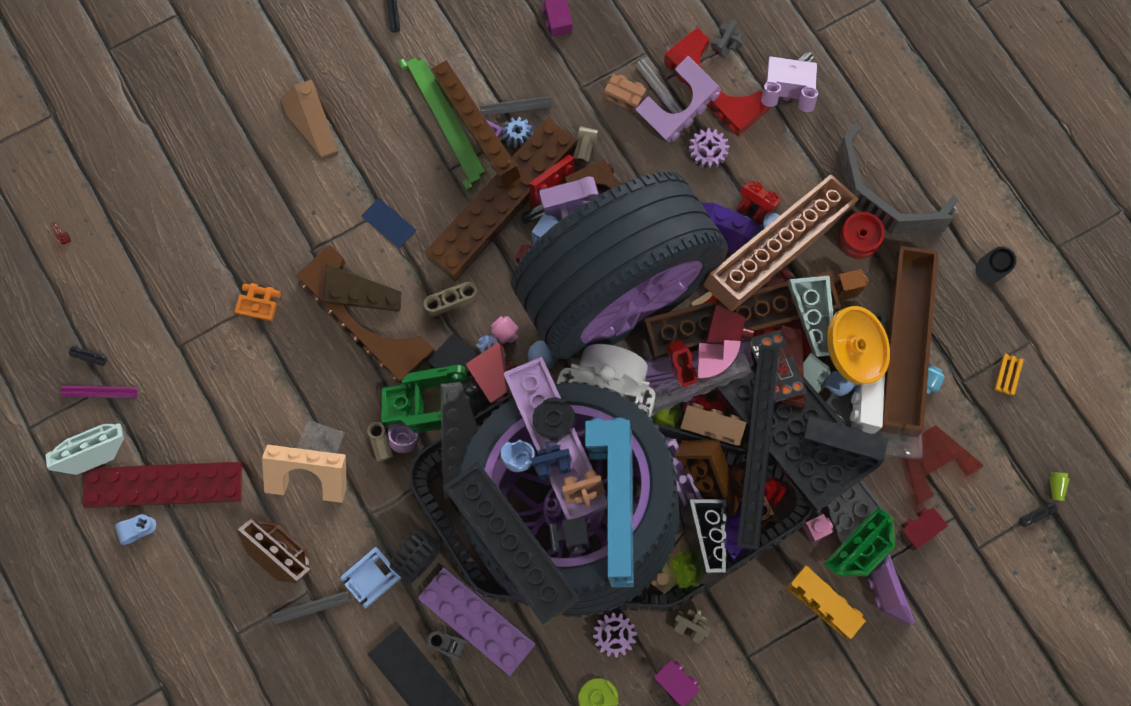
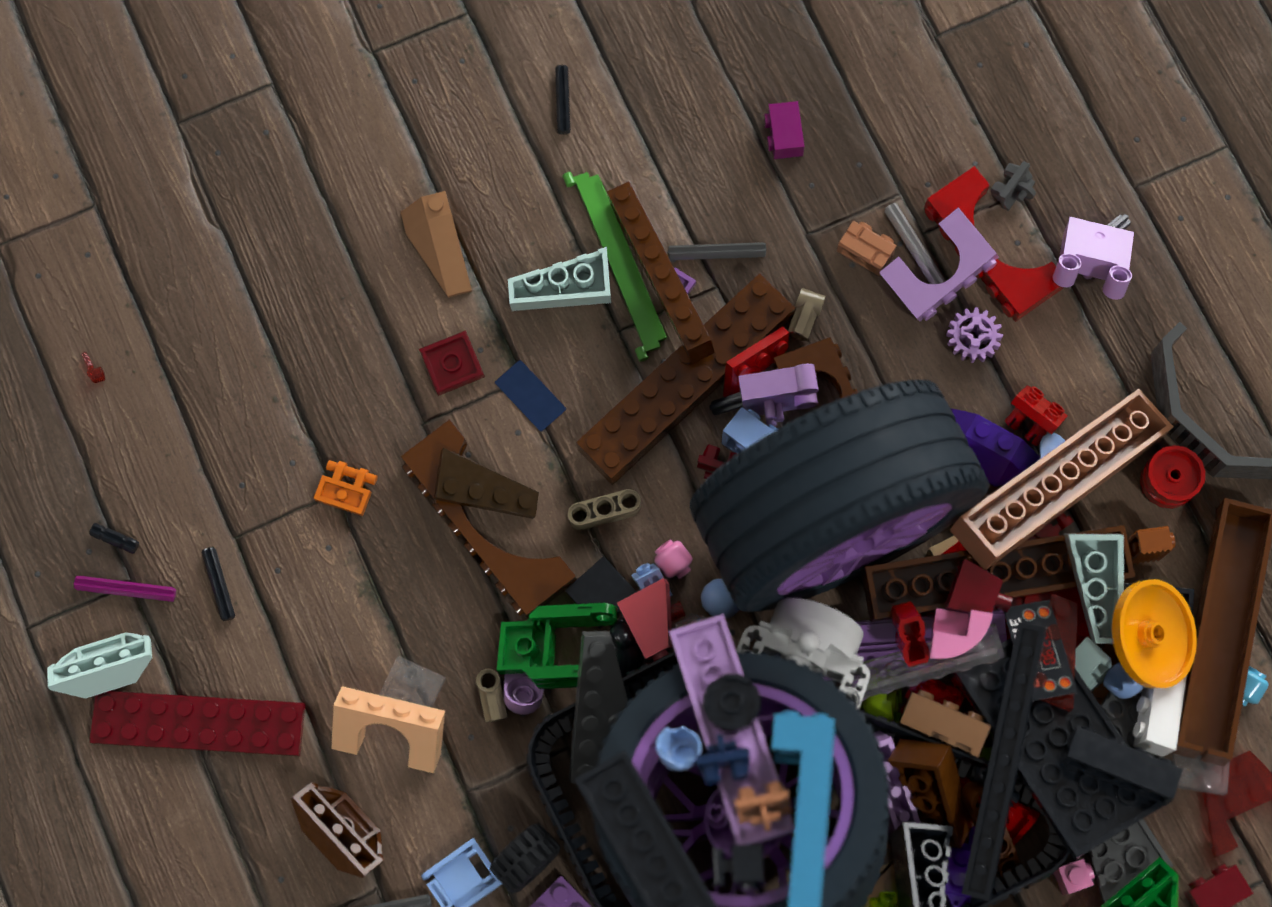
camera: 10 degrees right, 0 degrees up
(132, 529) = (151, 780): light blue piece -> none
(169, 381) = (218, 584): none -> black axle
(328, 204) = (451, 363): none -> dark red plate
(405, 139) = (563, 284): none -> light aqua wedge
(510, 132) = (721, 282): light blue gear -> none

